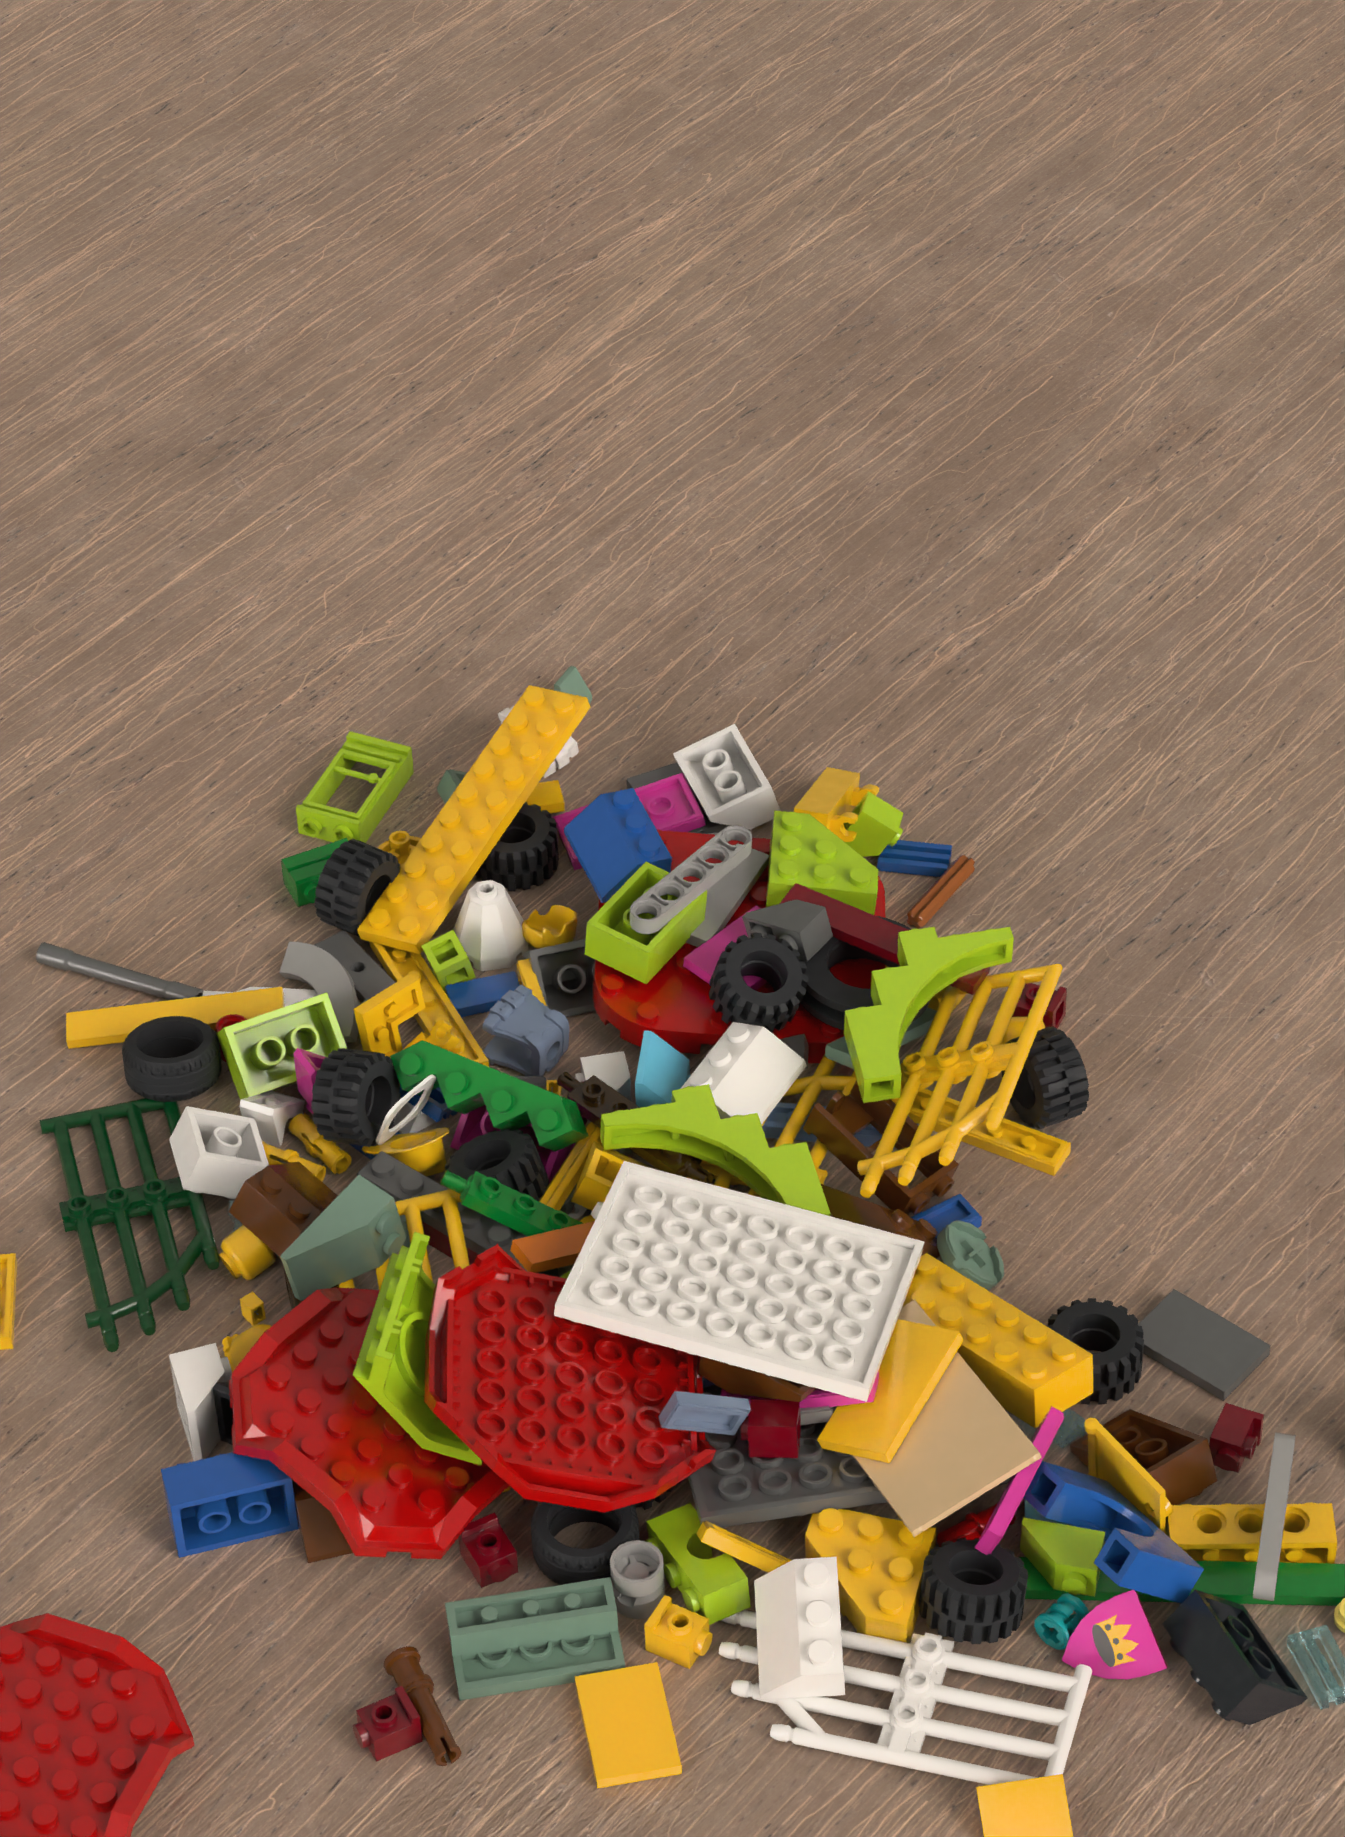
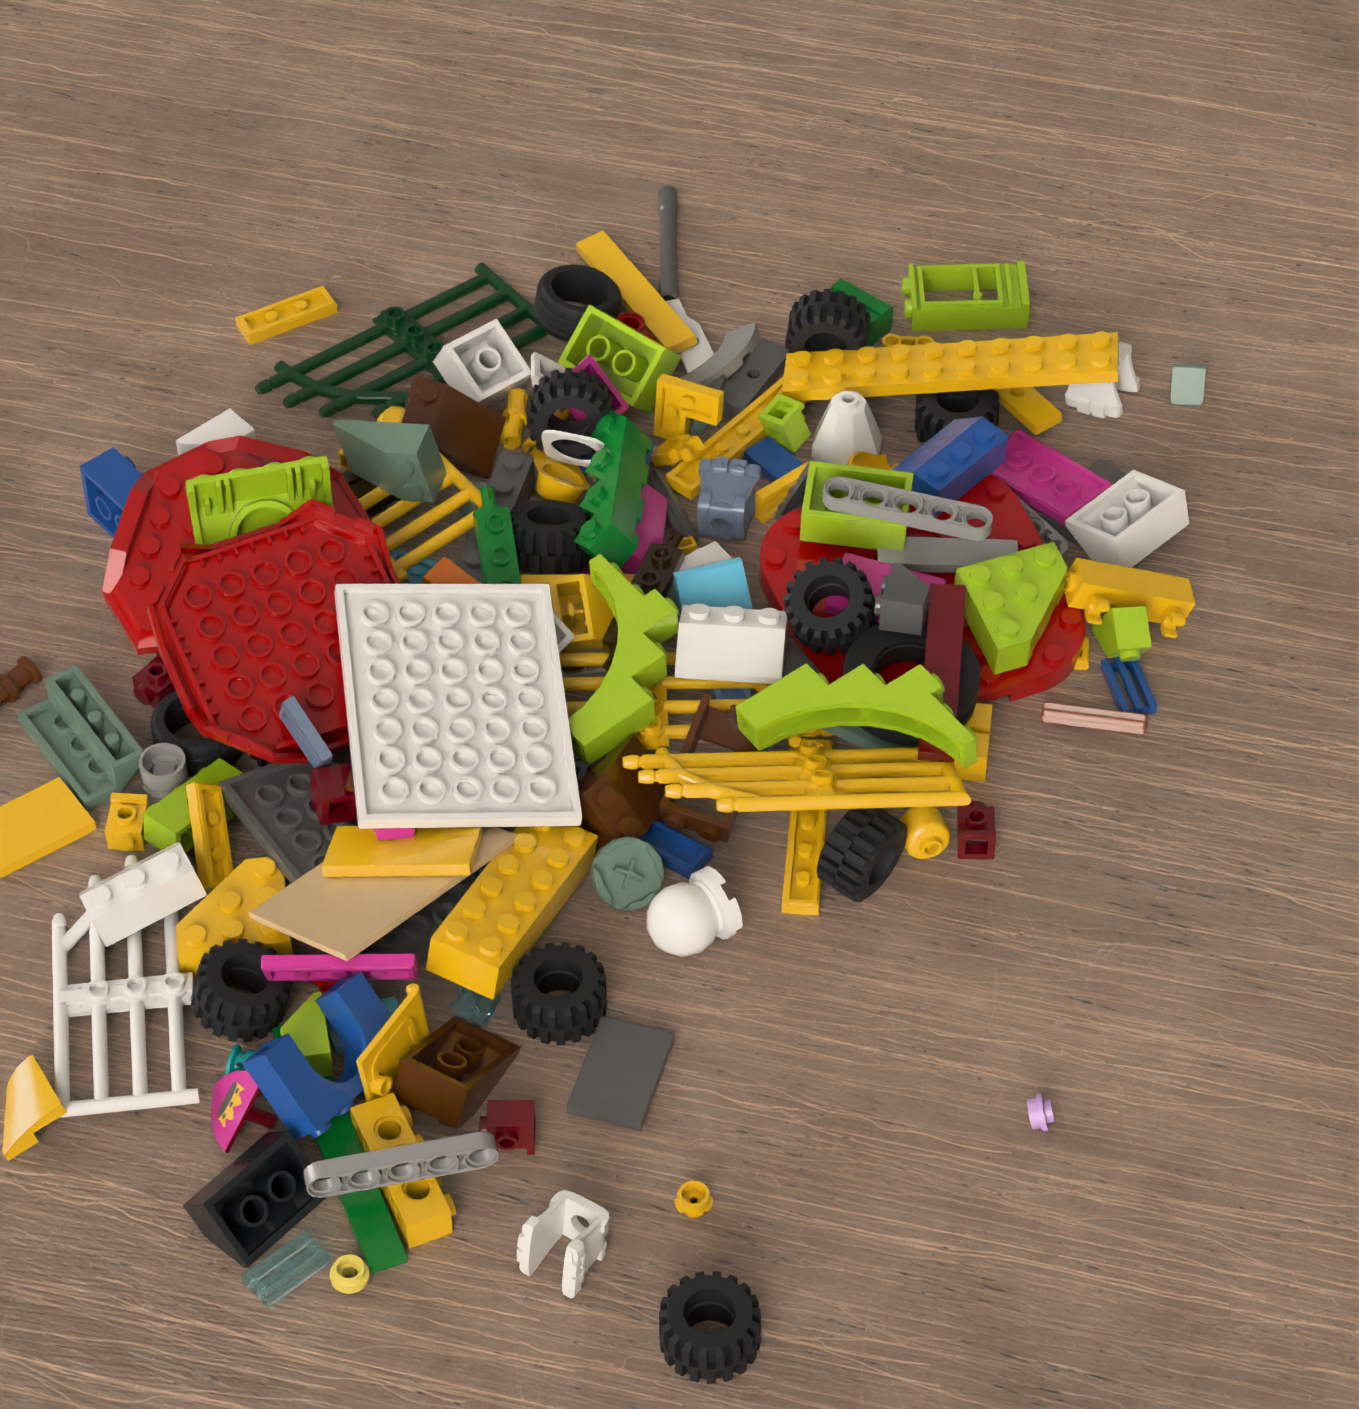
camera: 65 degrees right, 5 degrees up
(1052, 1218) = (690, 915): none -> white tile

